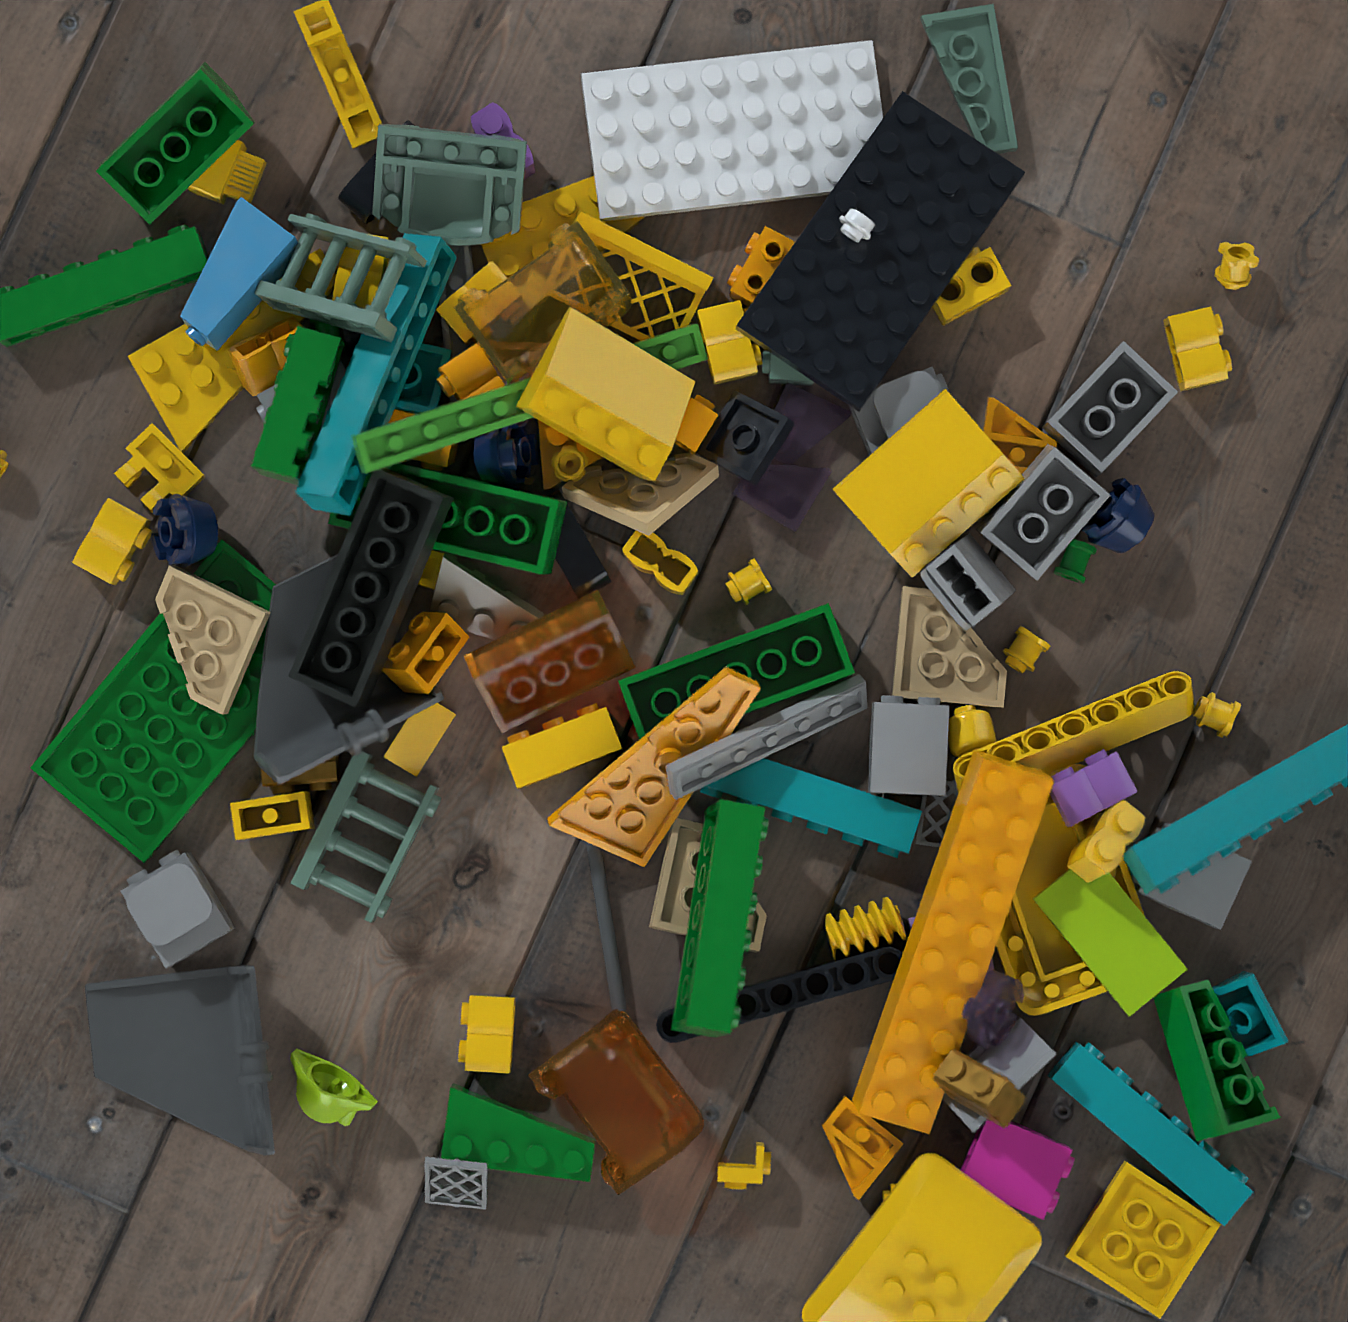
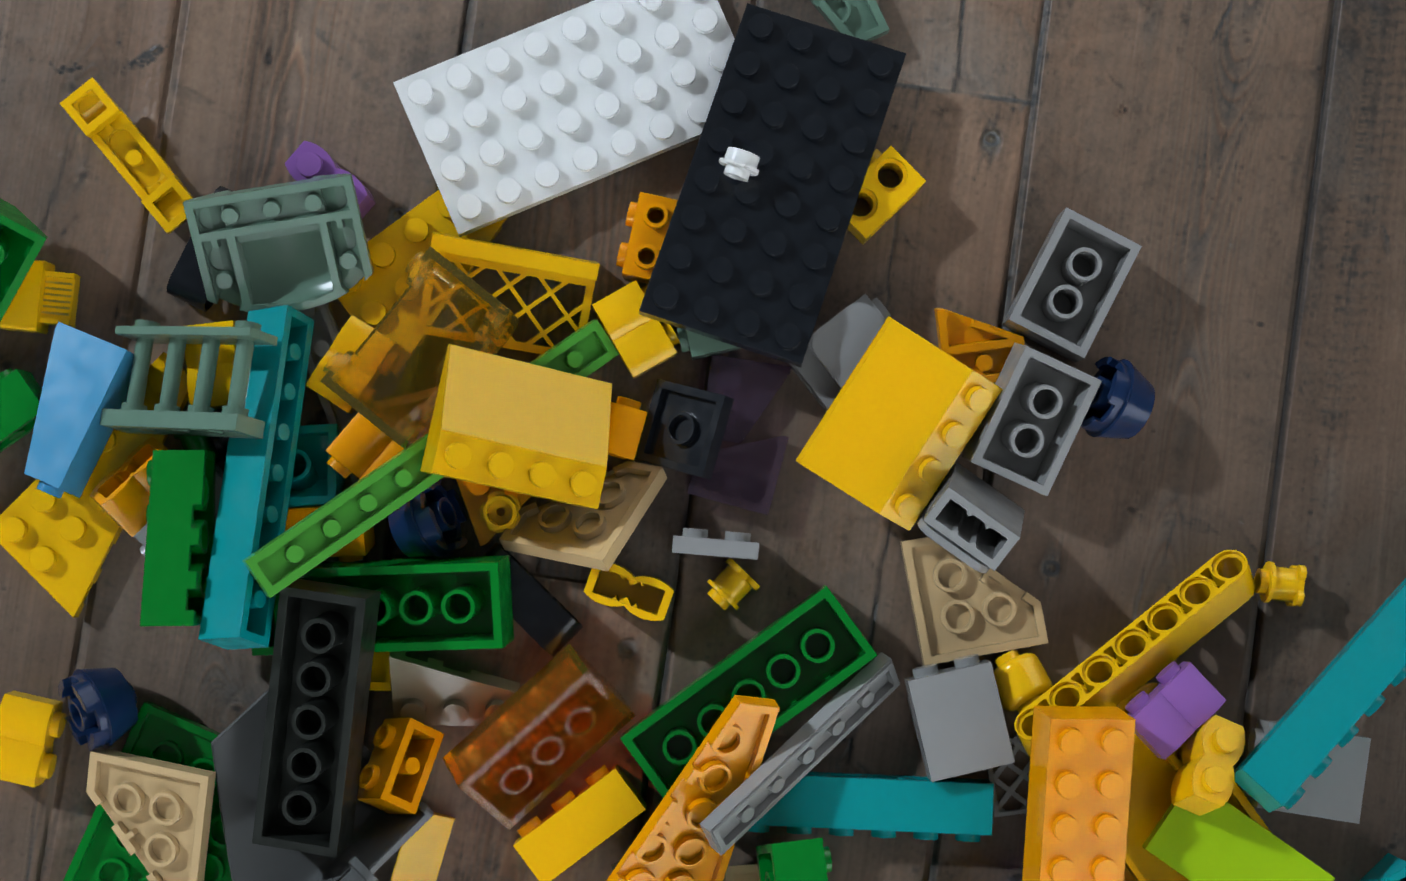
camera: 15 degrees left, 0 degrees up
(164, 462) = (57, 634): yellow plate -> none
(729, 537) = (733, 546): none -> light grey plate
(1025, 650) = (1053, 574): yellow brick -> none
(1075, 561) = (1080, 461): green bush -> none
(1197, 348) = (1145, 192): yellow brick -> none
(1236, 265) = (1161, 89): yellow brick -> none

